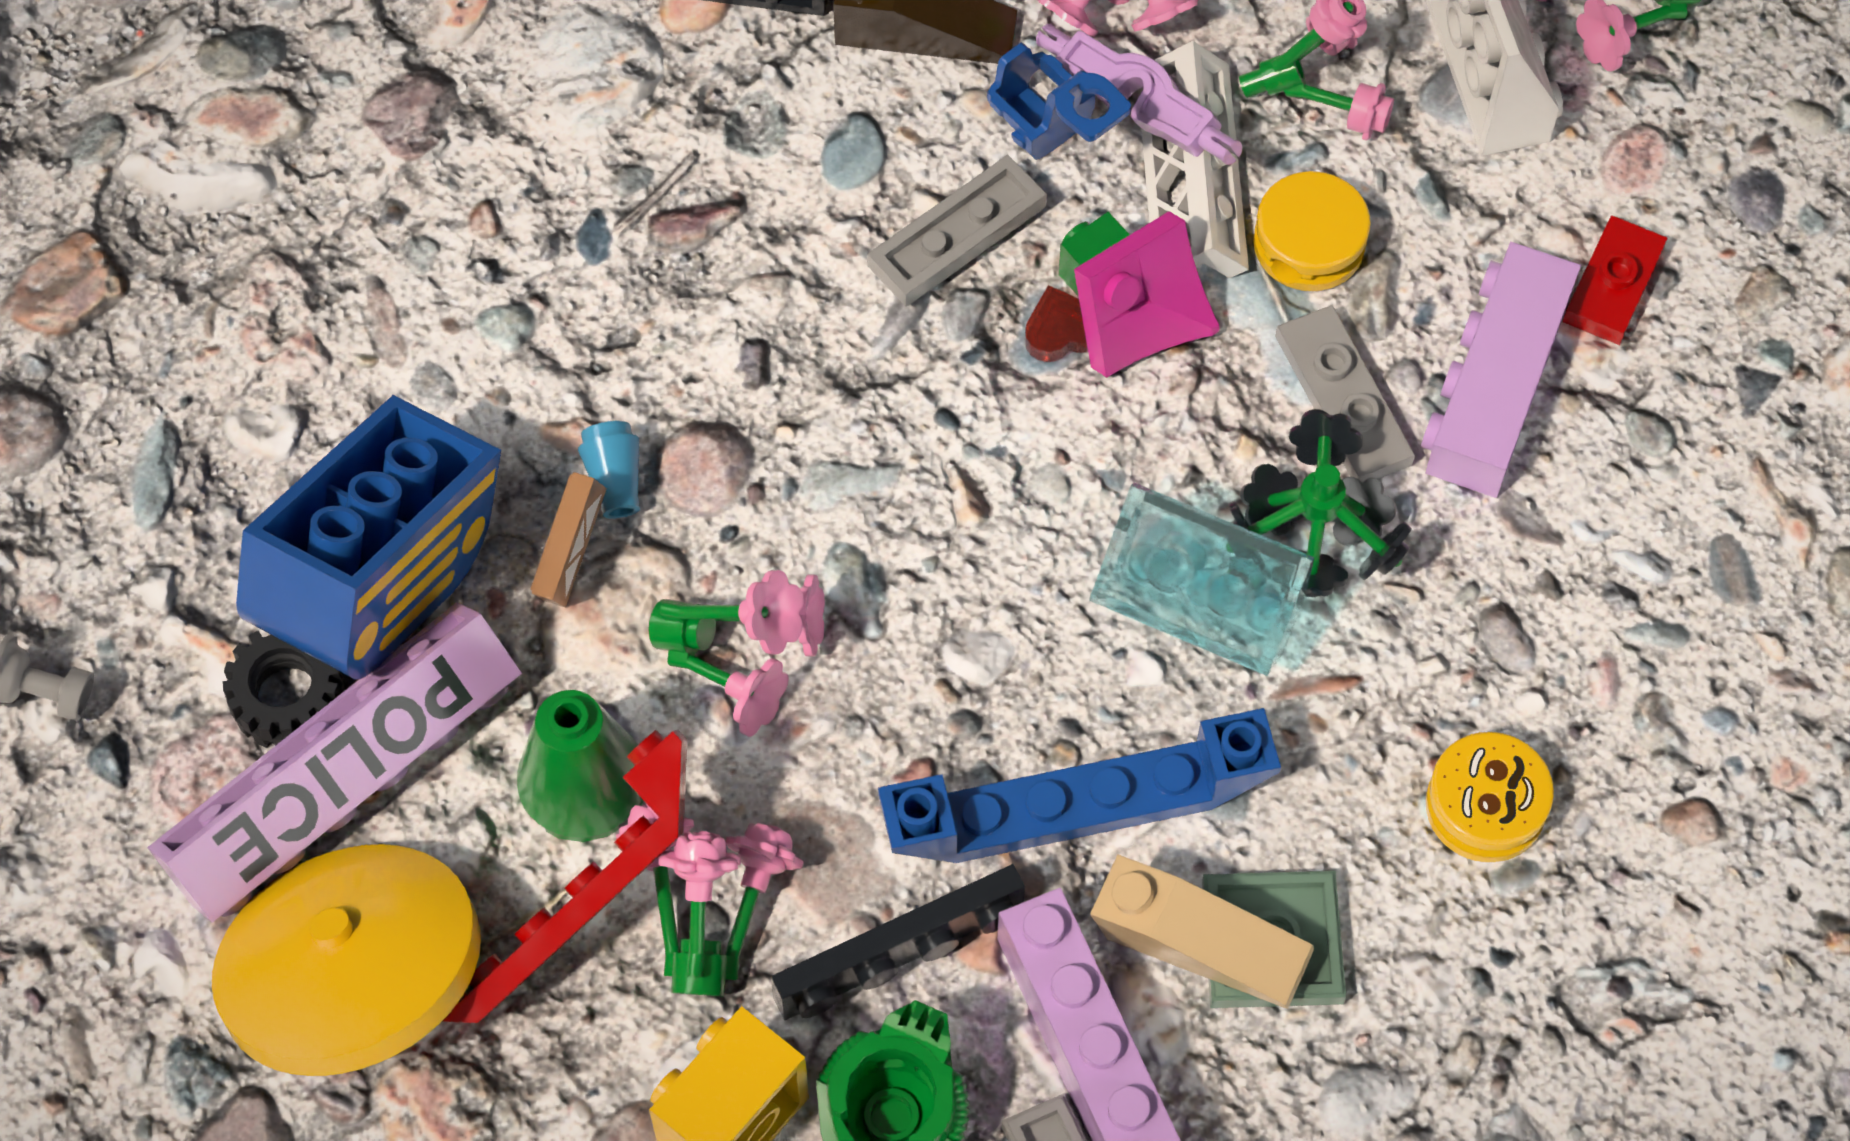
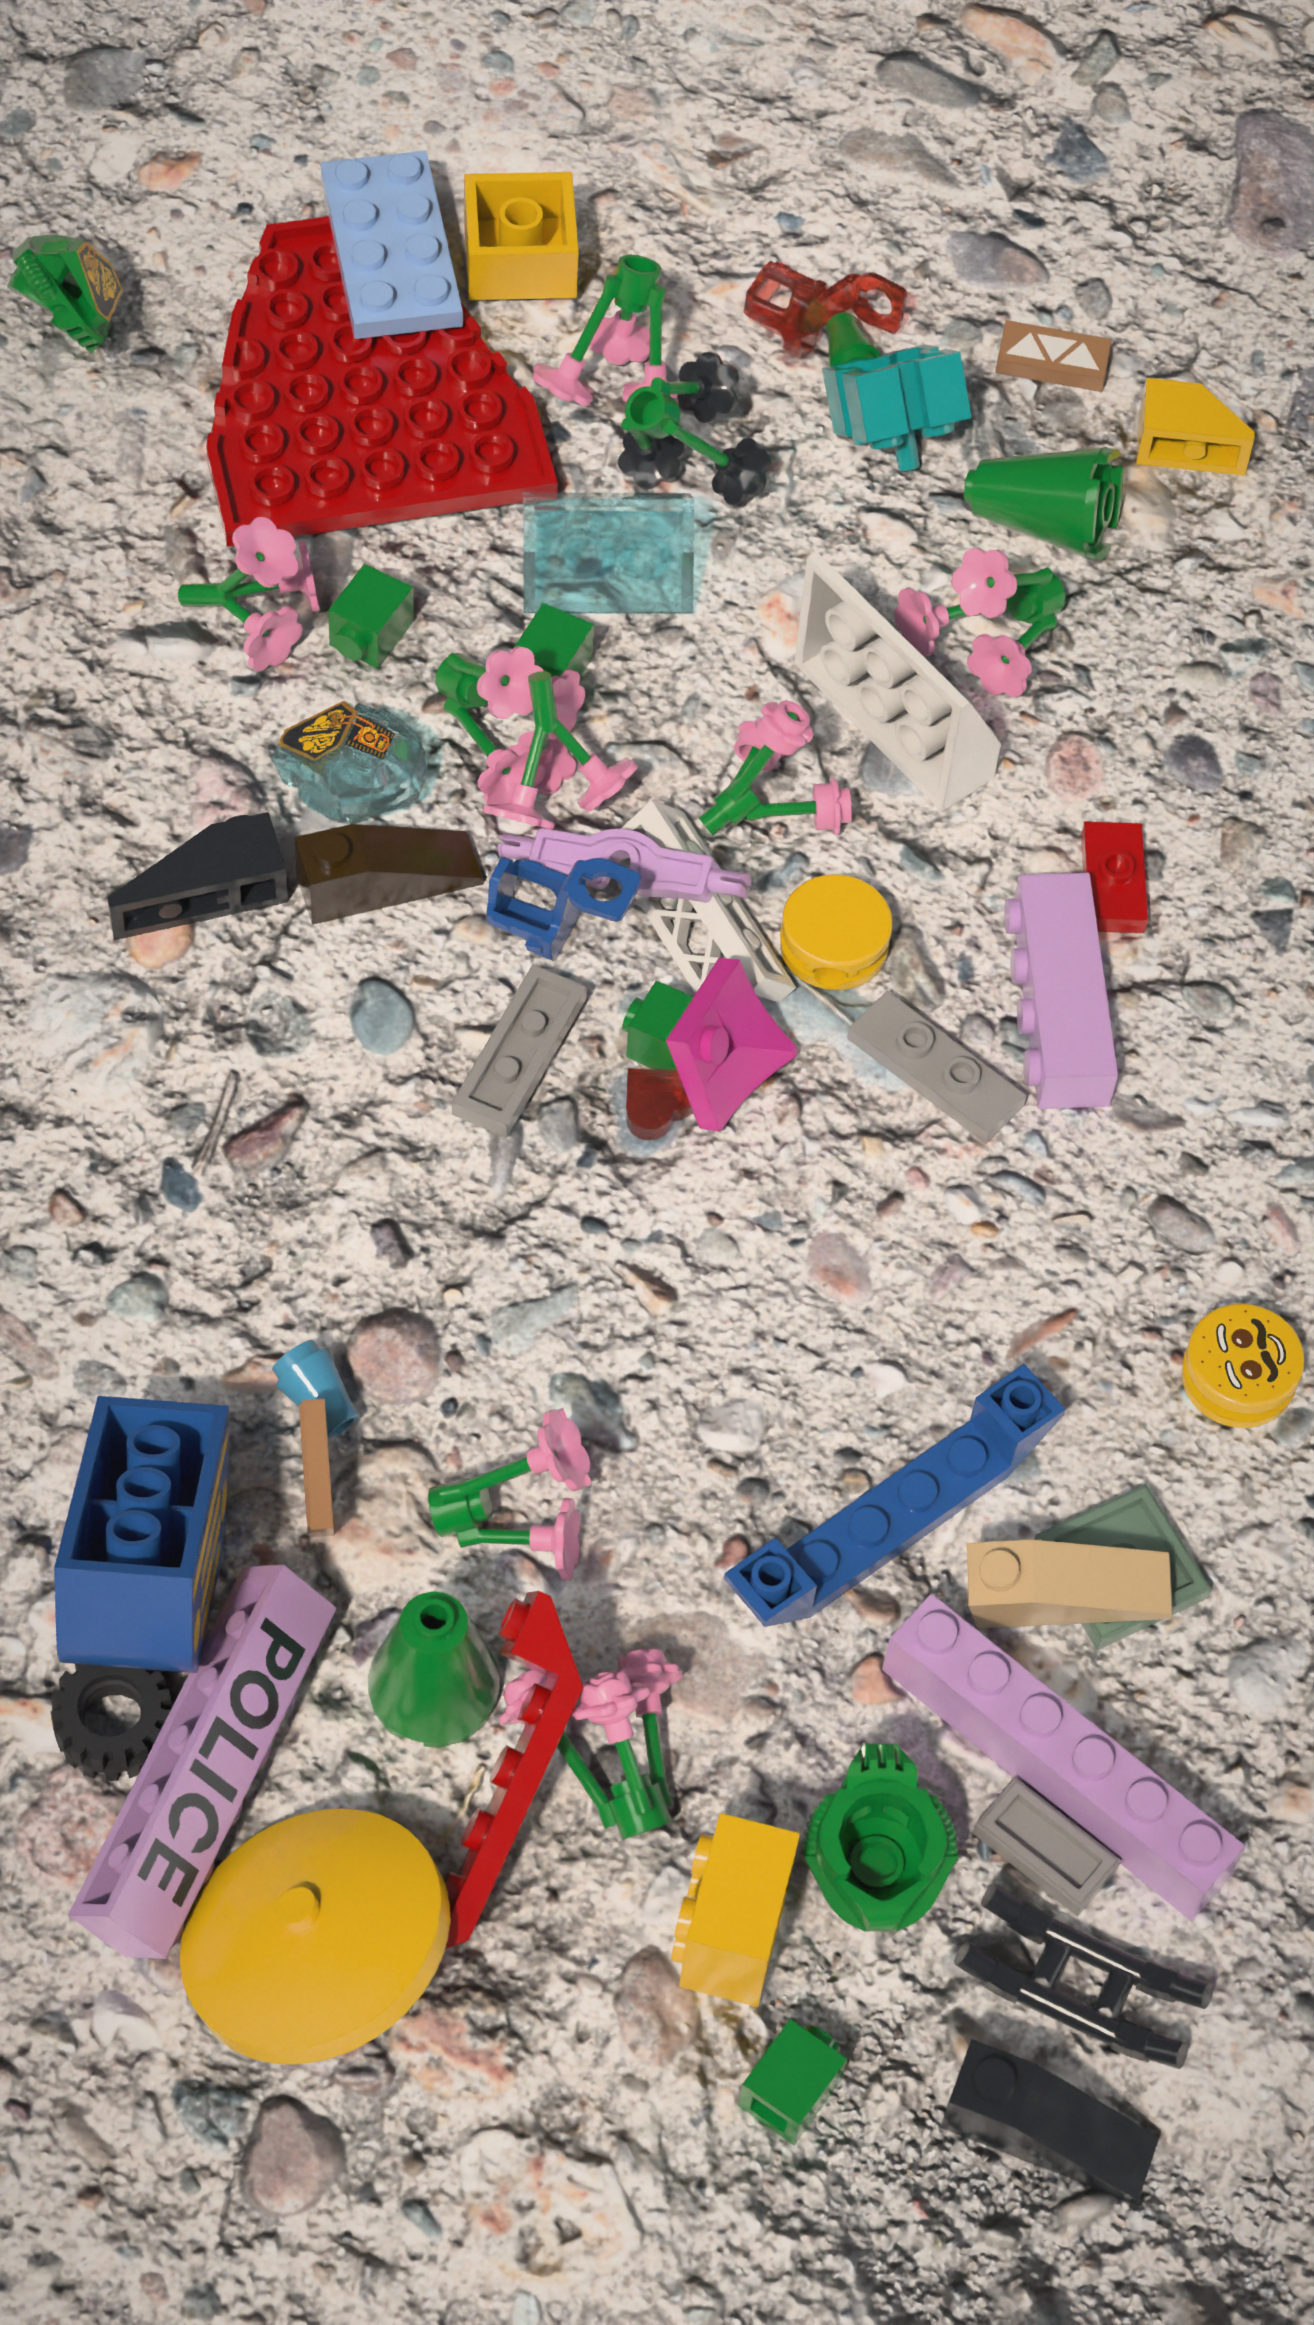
camera: 30 degrees left, 5 degrees down
(878, 953) = (790, 1727): black plate -> none
(1203, 579) = (913, 1271): clear light blue slope -> none
(1324, 497) = (986, 1159): black plant -> none

